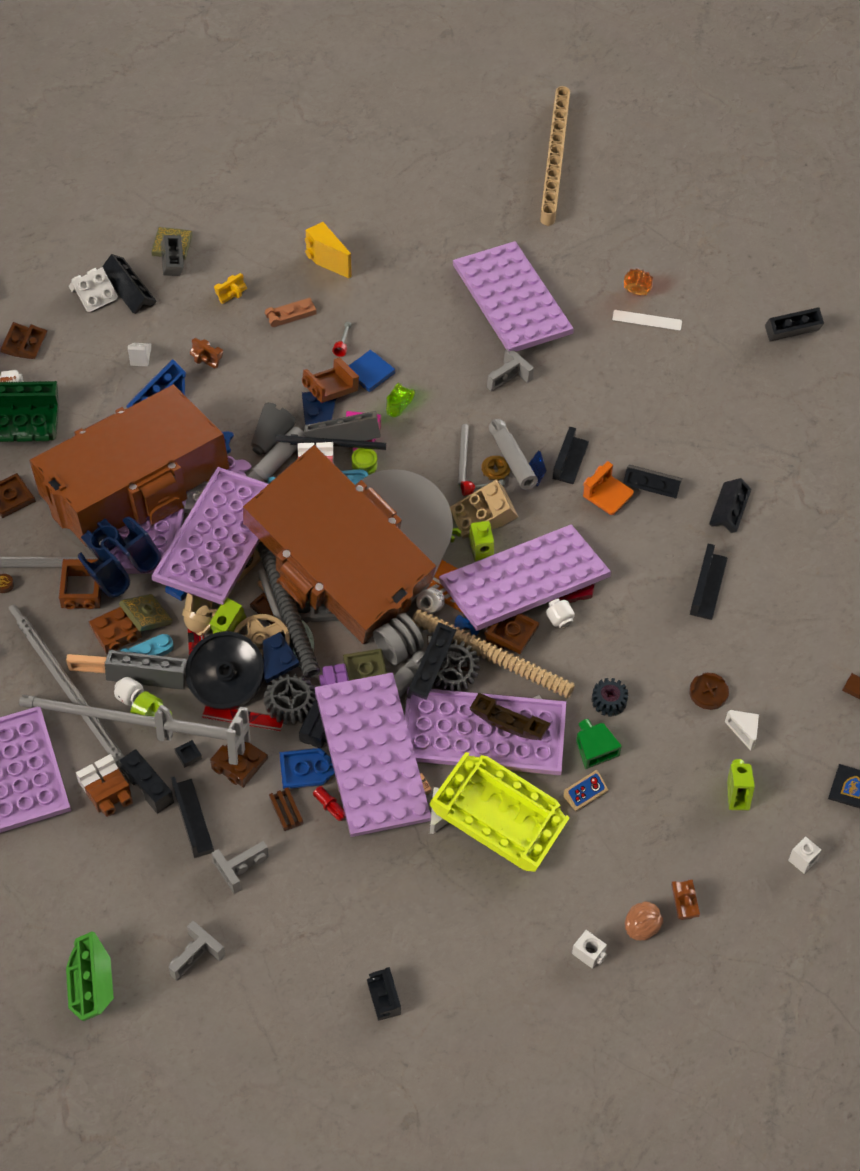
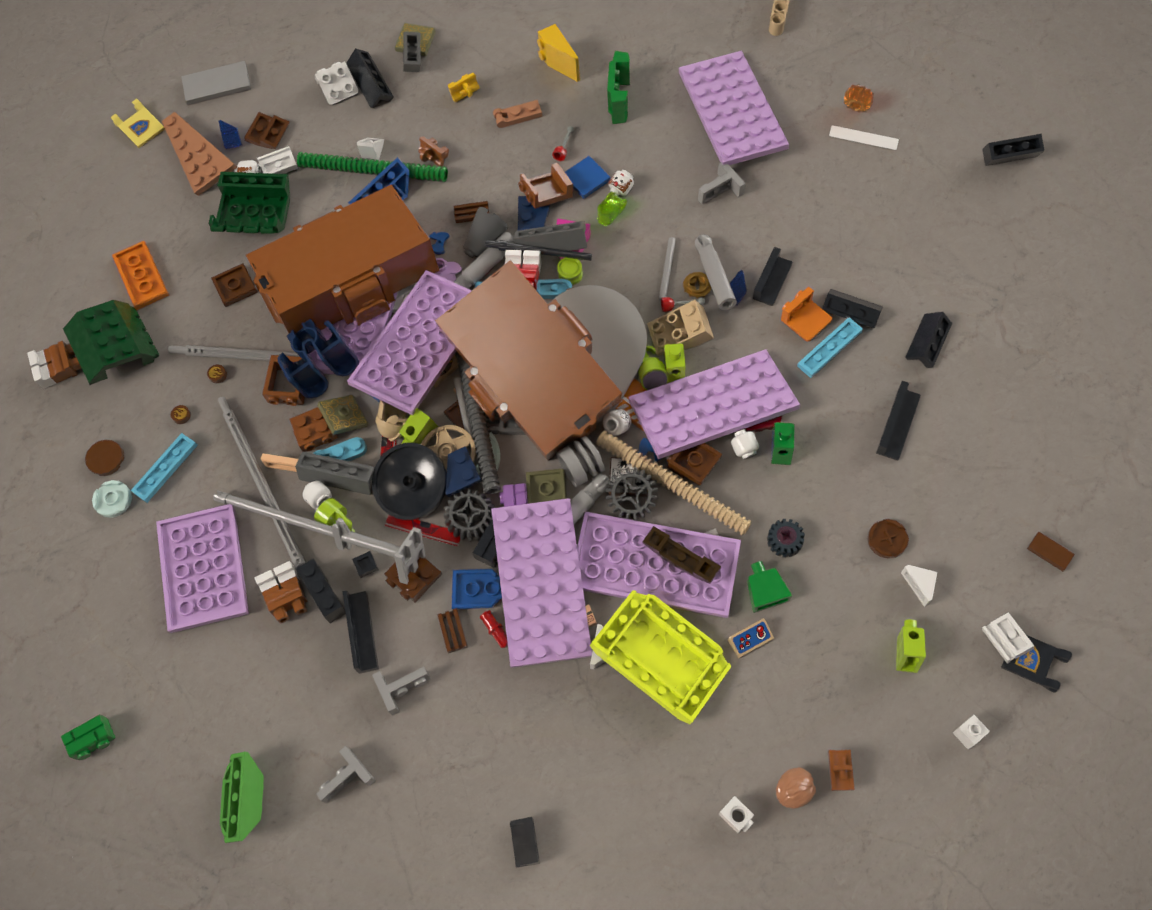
camera: 15 degrees right, 10 degrees up
(41, 370) = (278, 161): none -> white plate
(131, 370) = (368, 166): none -> green piece
(250, 407) = (470, 209): none -> reddish brown tile
(394, 270) = (618, 75): none -> green plate
(407, 374) = (621, 183): none -> white head
(431, 661) = (609, 490): black panel -> none
(461, 553) = (652, 373): none -> piece
(597, 602) = (782, 440): none -> green torso
(634, 519) = (829, 347): none -> medium azure plate
(831, 769) = (1008, 637): none -> white plate

